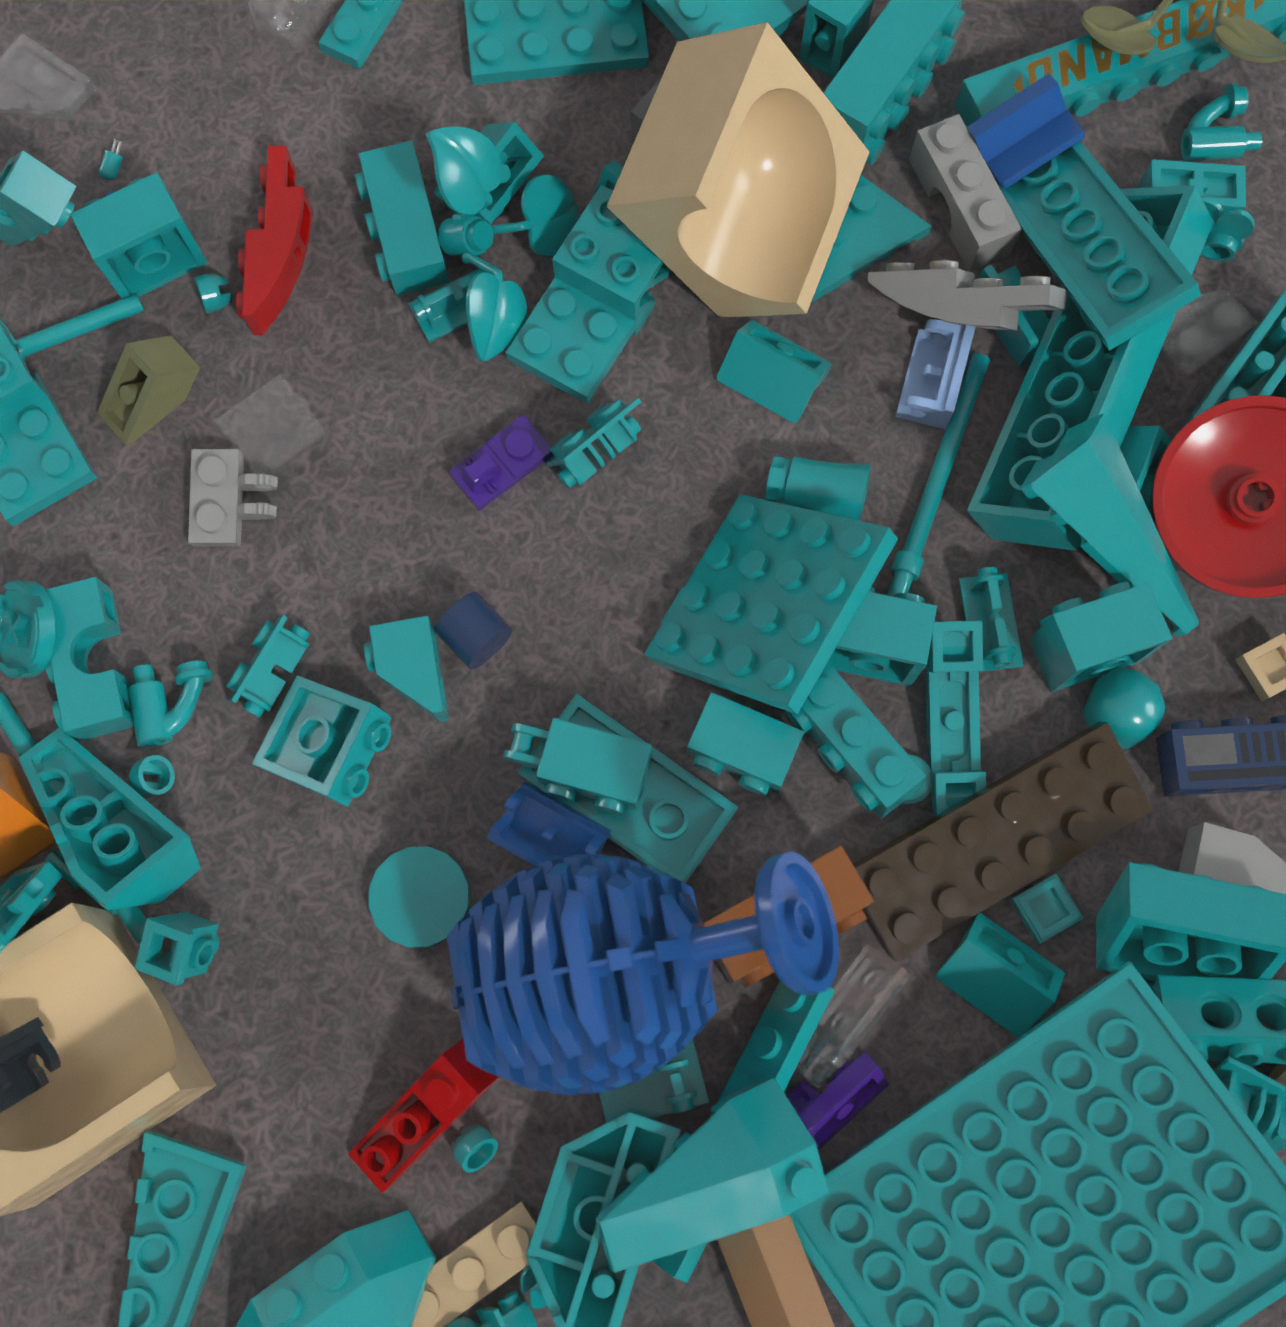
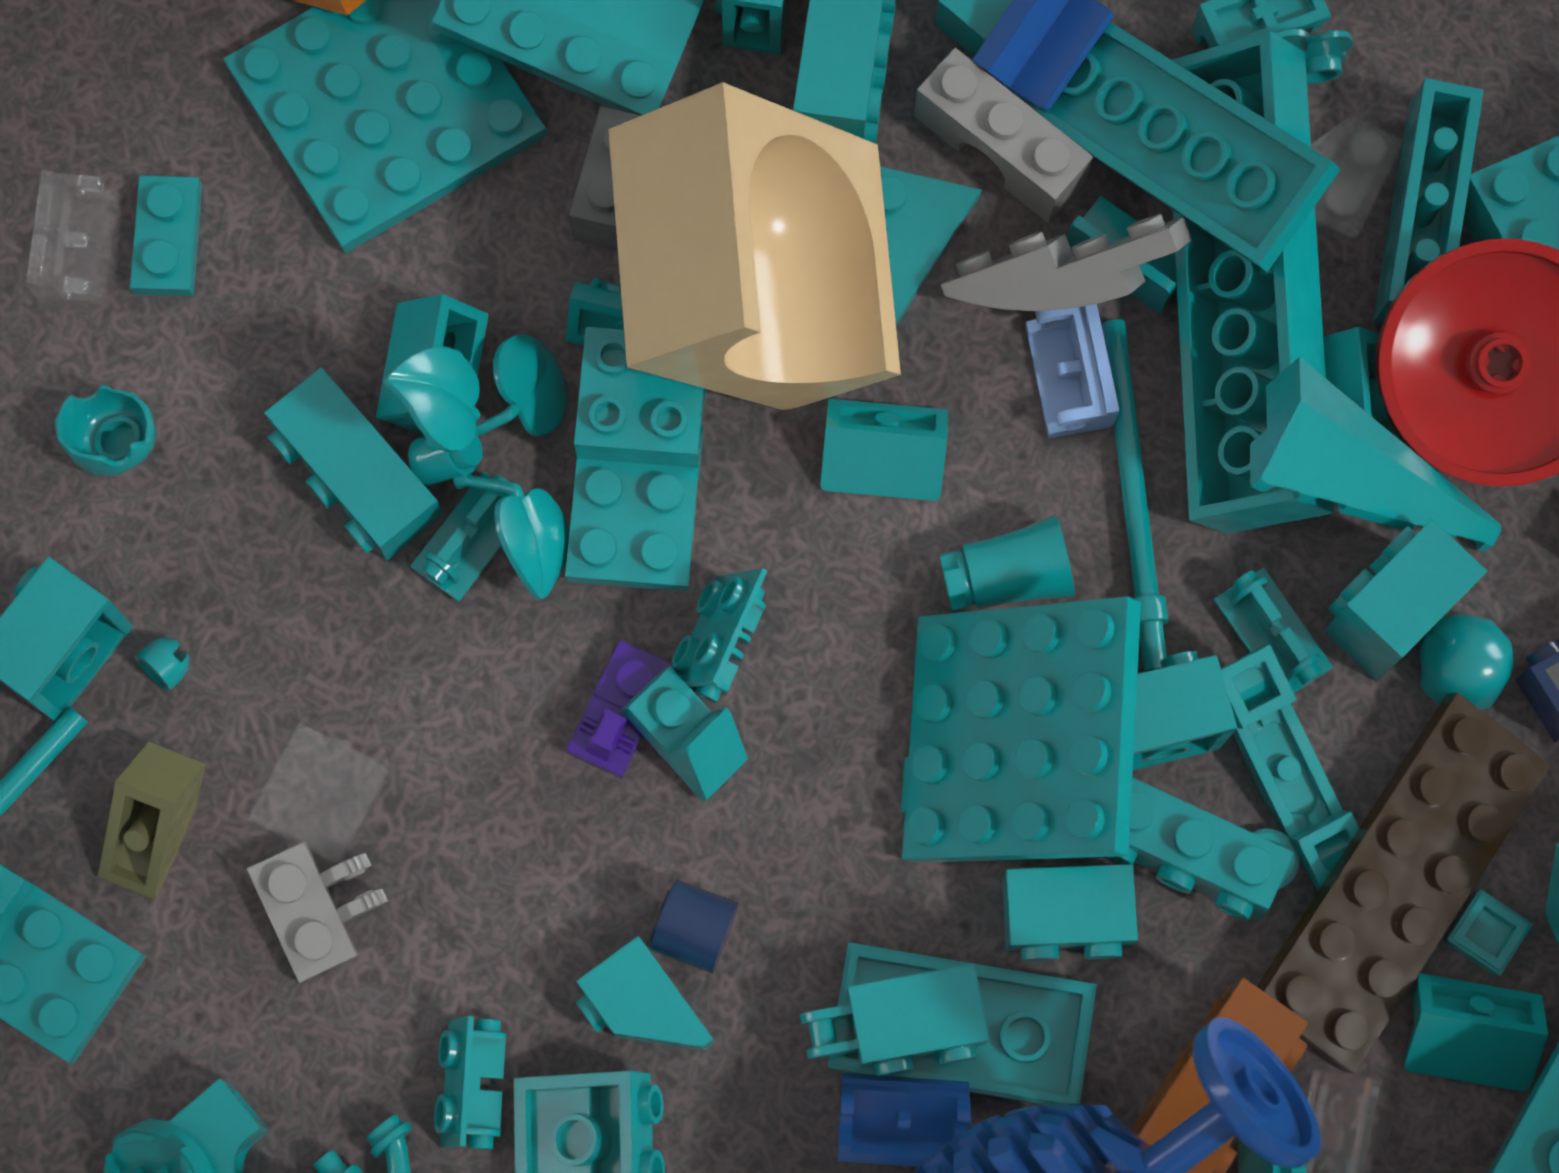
camera: 30 degrees left, 0 degrees up
(250, 123) = (106, 431): none -> teal hair
(277, 249) = (220, 583): red slope -> none
(535, 497) = (689, 737): none -> teal slope

